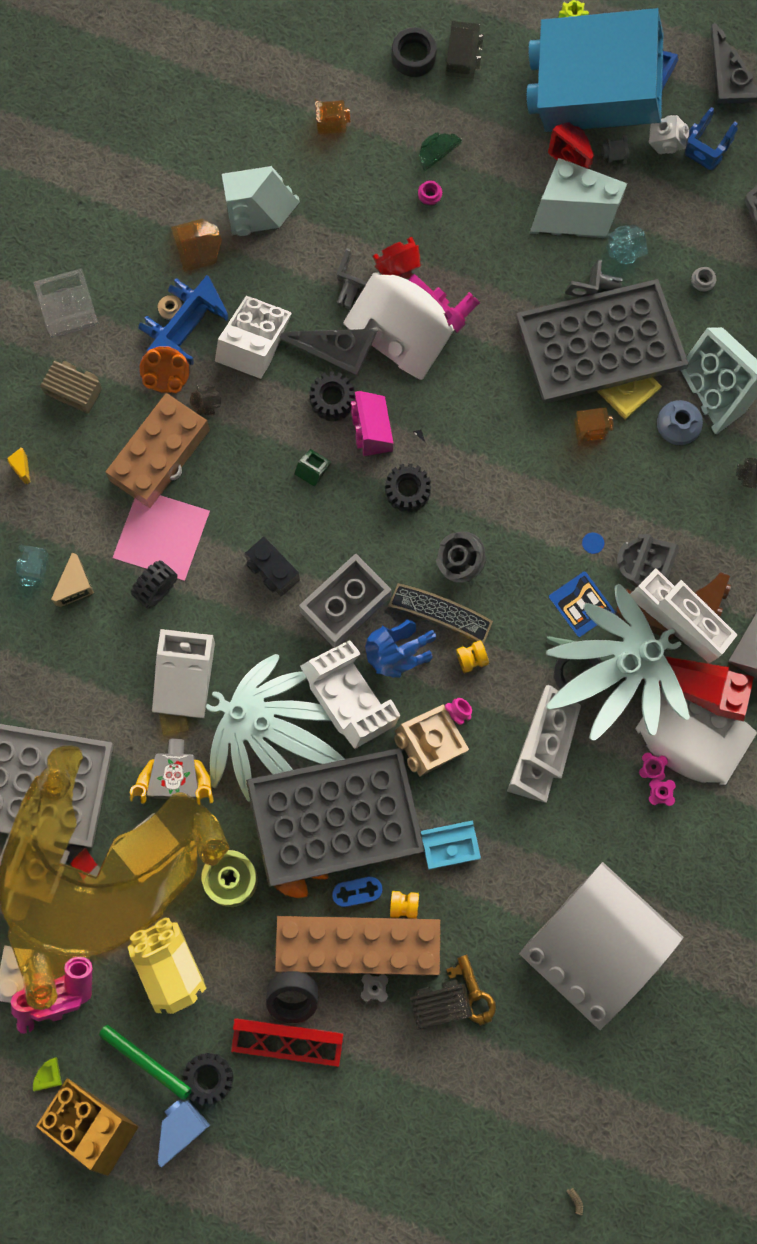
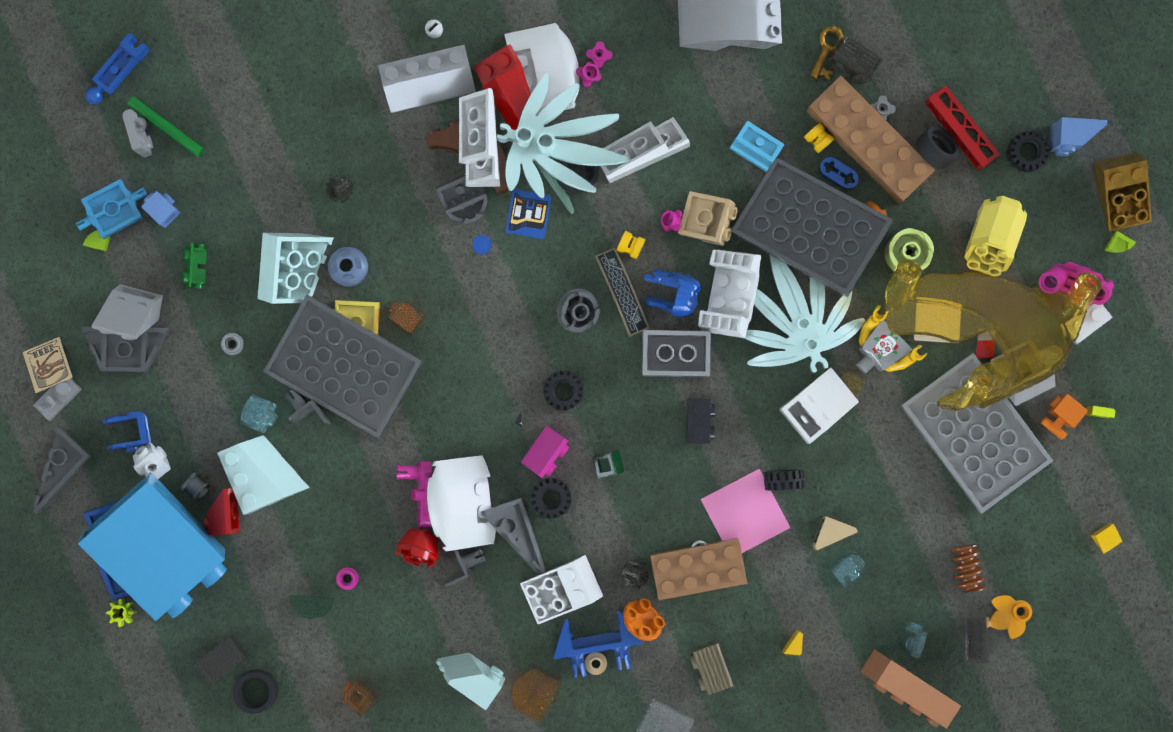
camera: 130 degrees left, 10 degrees up
(145, 1062) = (1057, 194): green piece -> none

